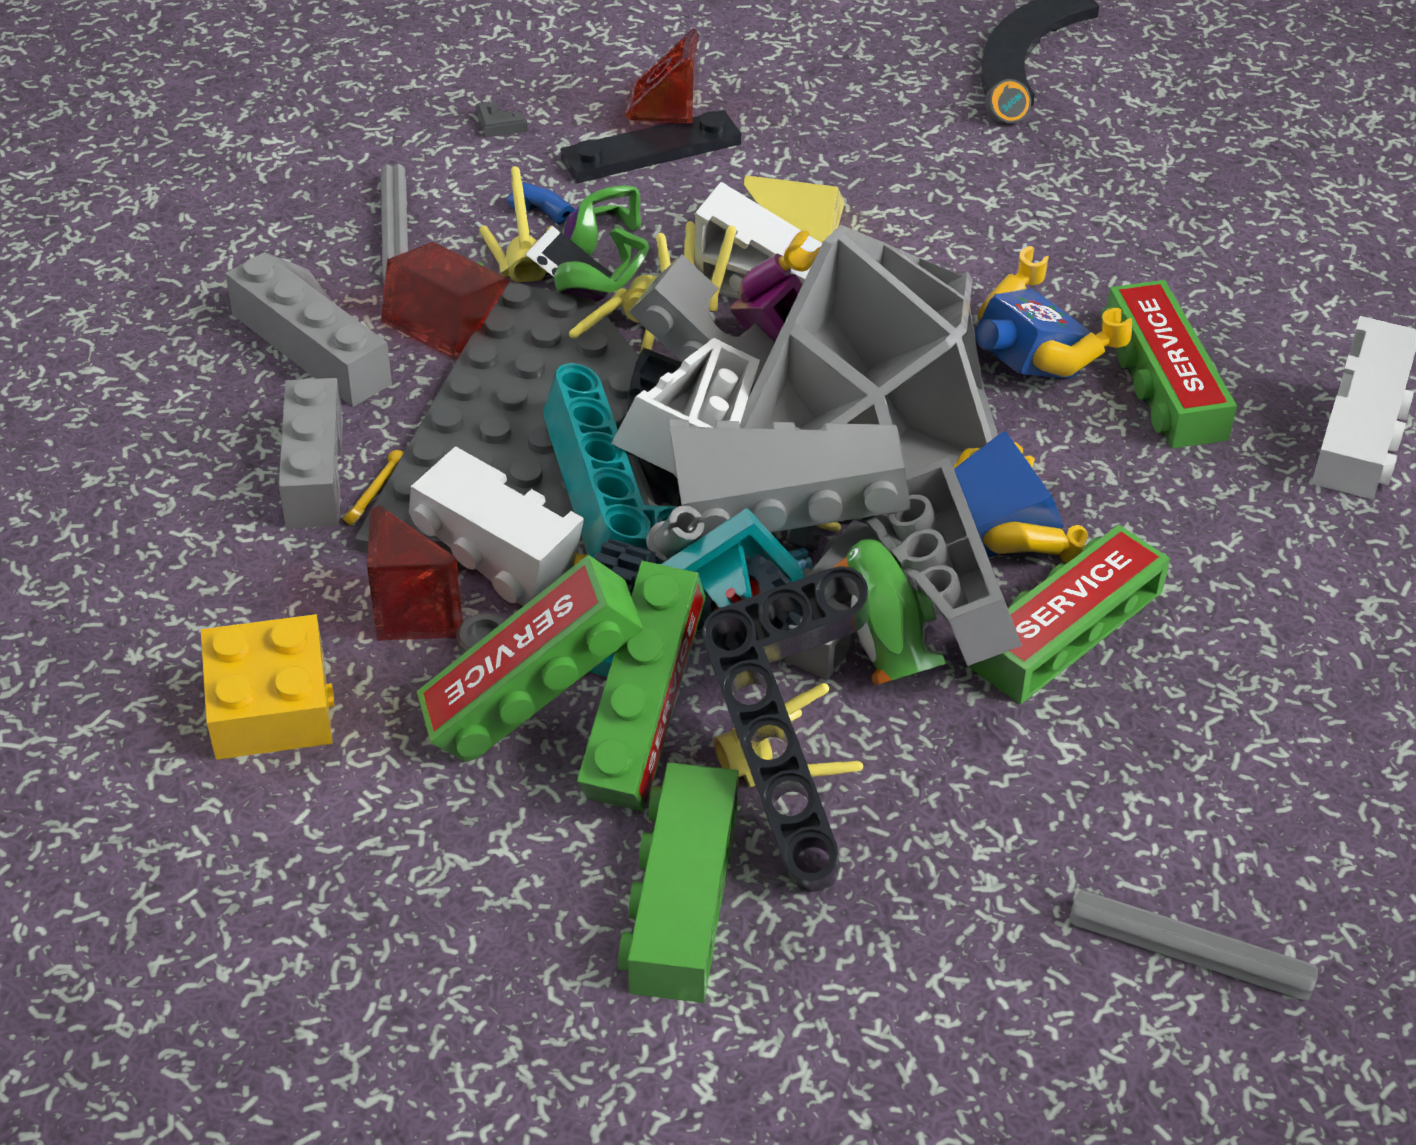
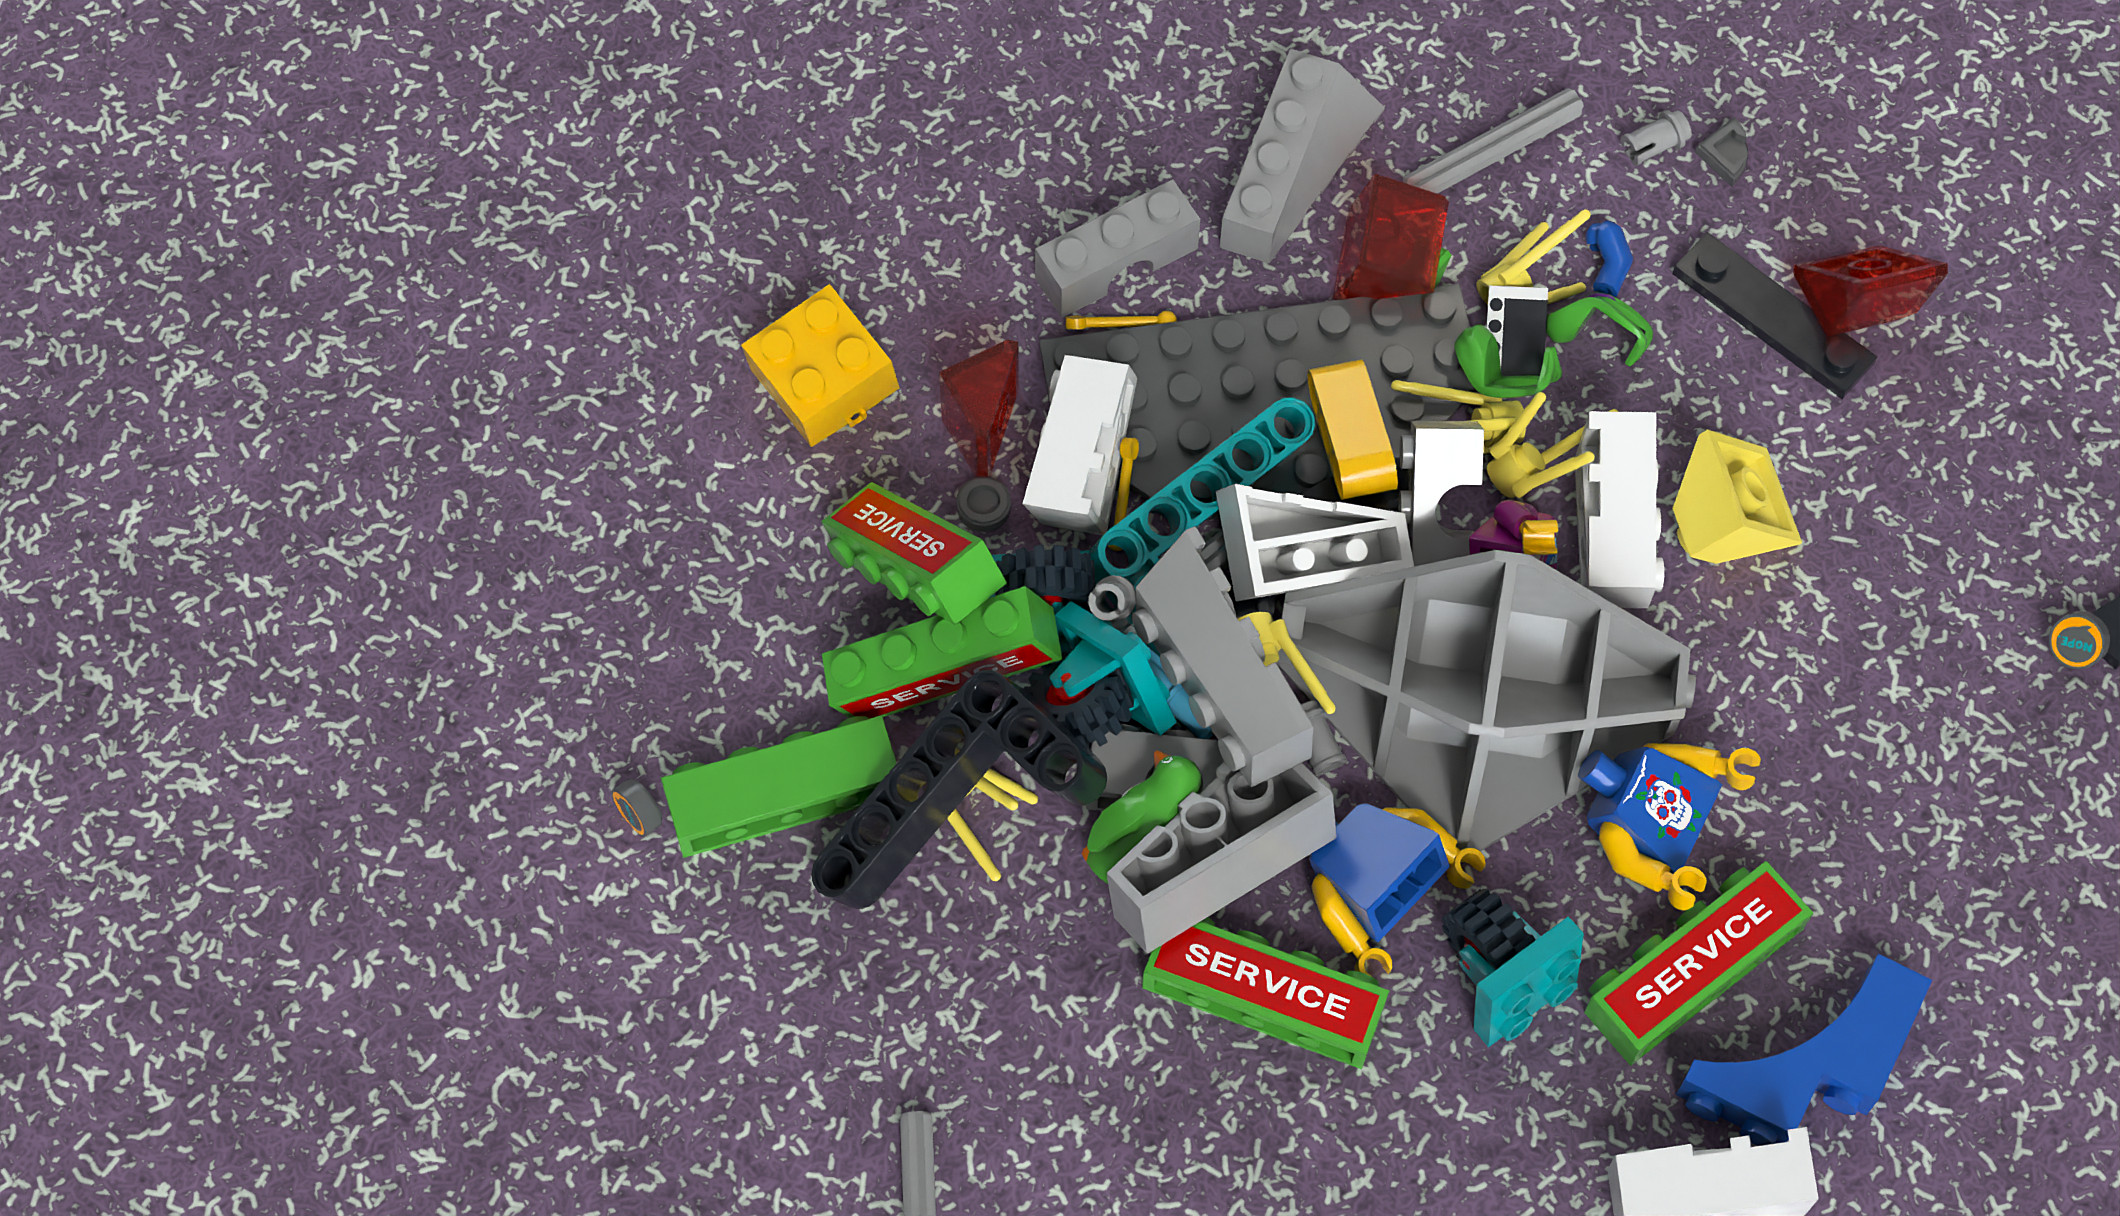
camera: 65 degrees right, 20 degrees up
(460, 138) = (1666, 132): none -> light grey pin
(622, 355) = (1352, 429): none -> yellow beam
(635, 1010) = (637, 806): none -> dark grey tile
(1125, 448) = (1511, 963): none -> teal plate
(1286, 326) = (1843, 1062): none -> blue arch

